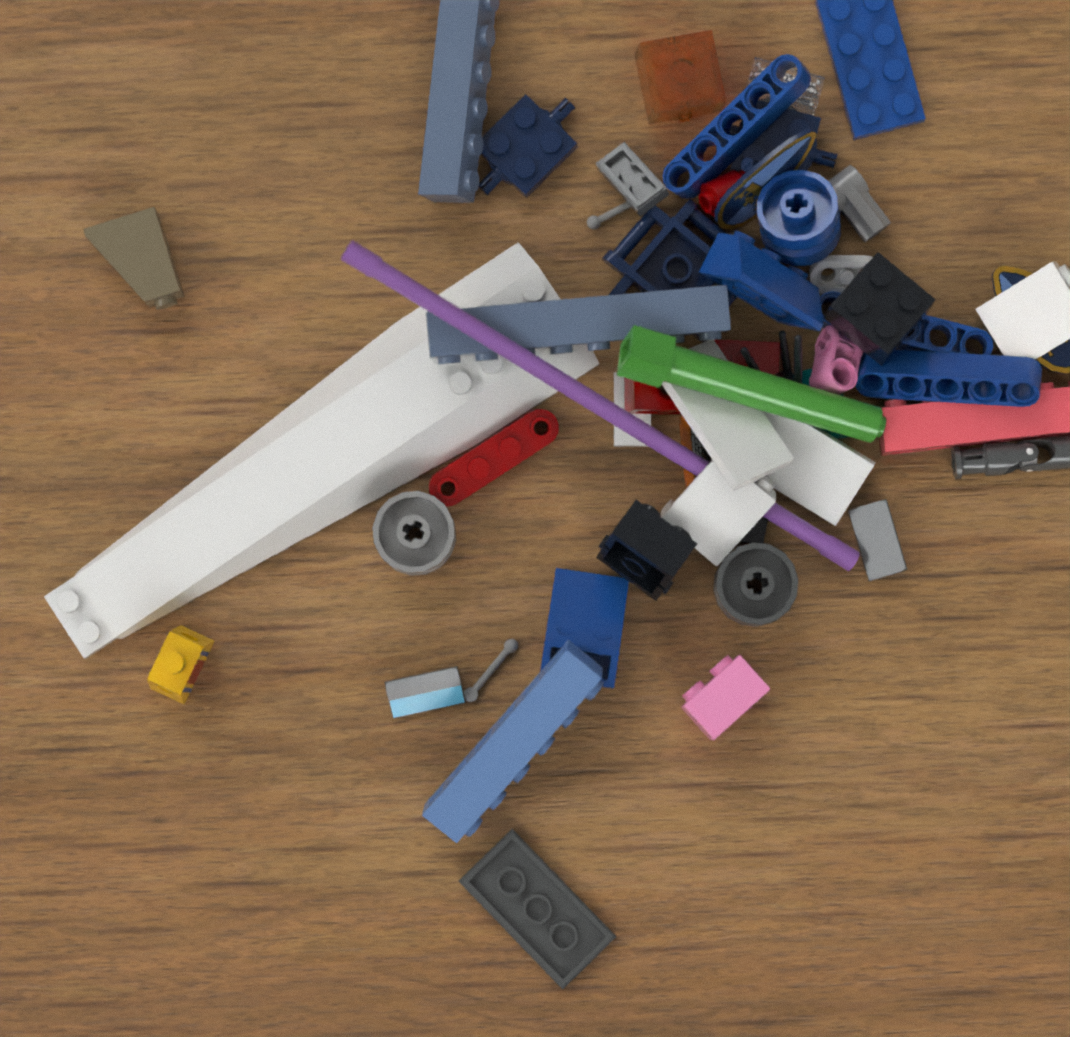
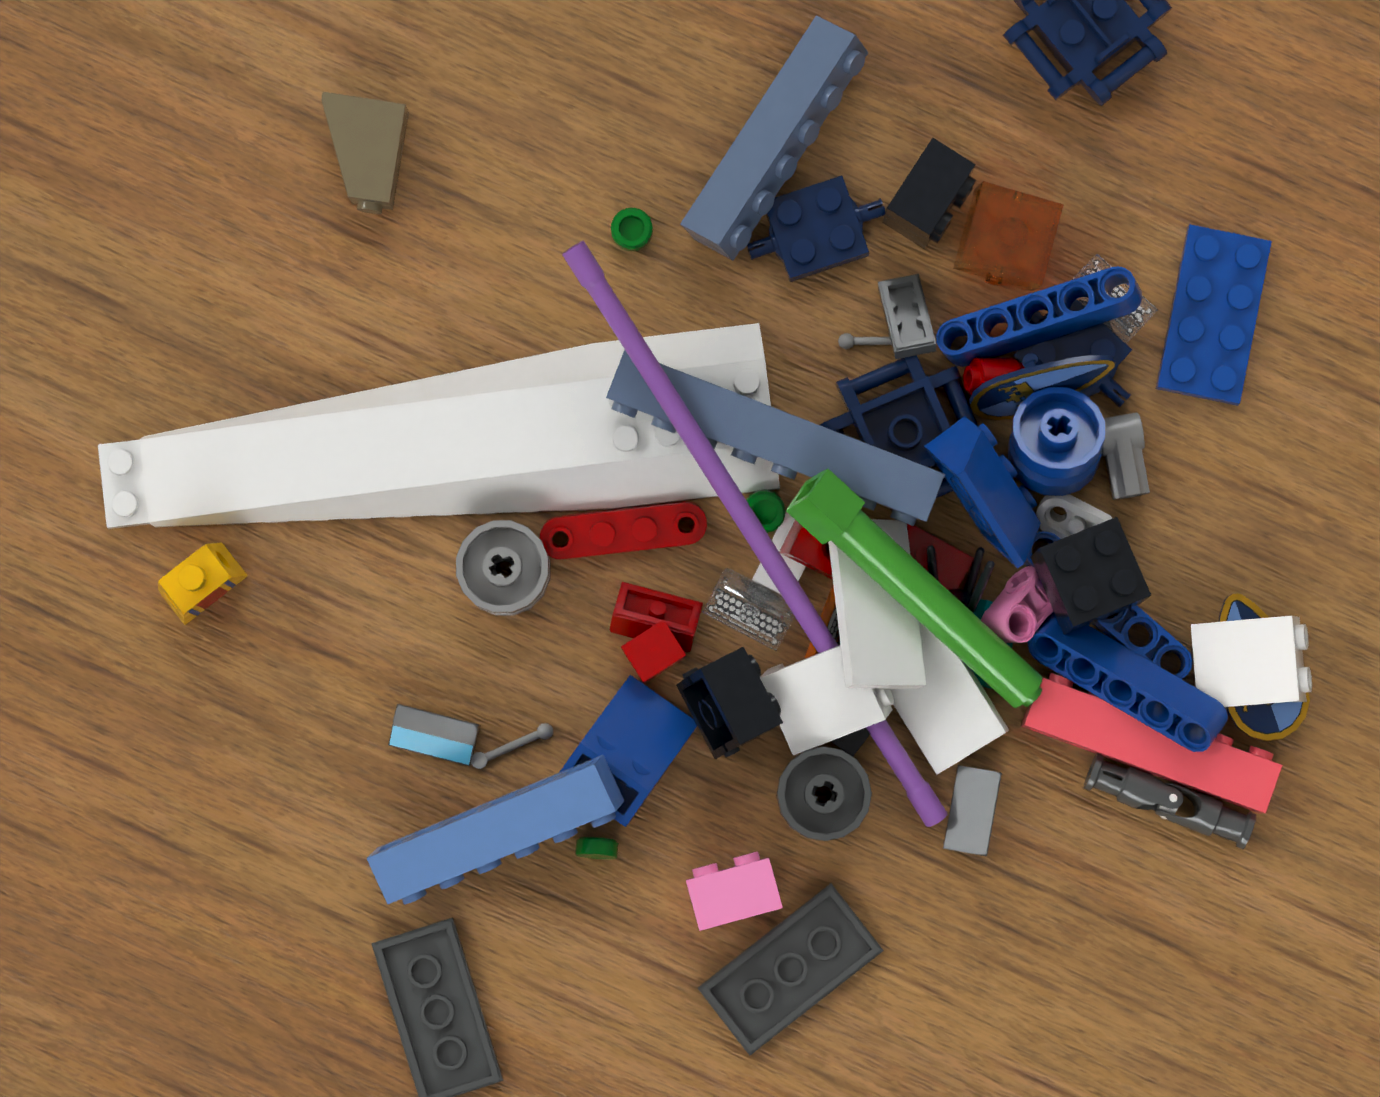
camera: 25 degrees right, 0 degrees up
(381, 218) = (631, 229): none -> green tile
(553, 512) = (642, 608): none -> red slope
(565, 540) = (653, 651): none -> red panel
(598, 716) = (596, 848): none -> green tile
(600, 382) = (768, 508): none -> green tile
(601, 71) = (928, 193): none -> black brick
(624, 469) = (749, 609): none -> clear slope
(797, 735) = (790, 969): none -> dark grey tile

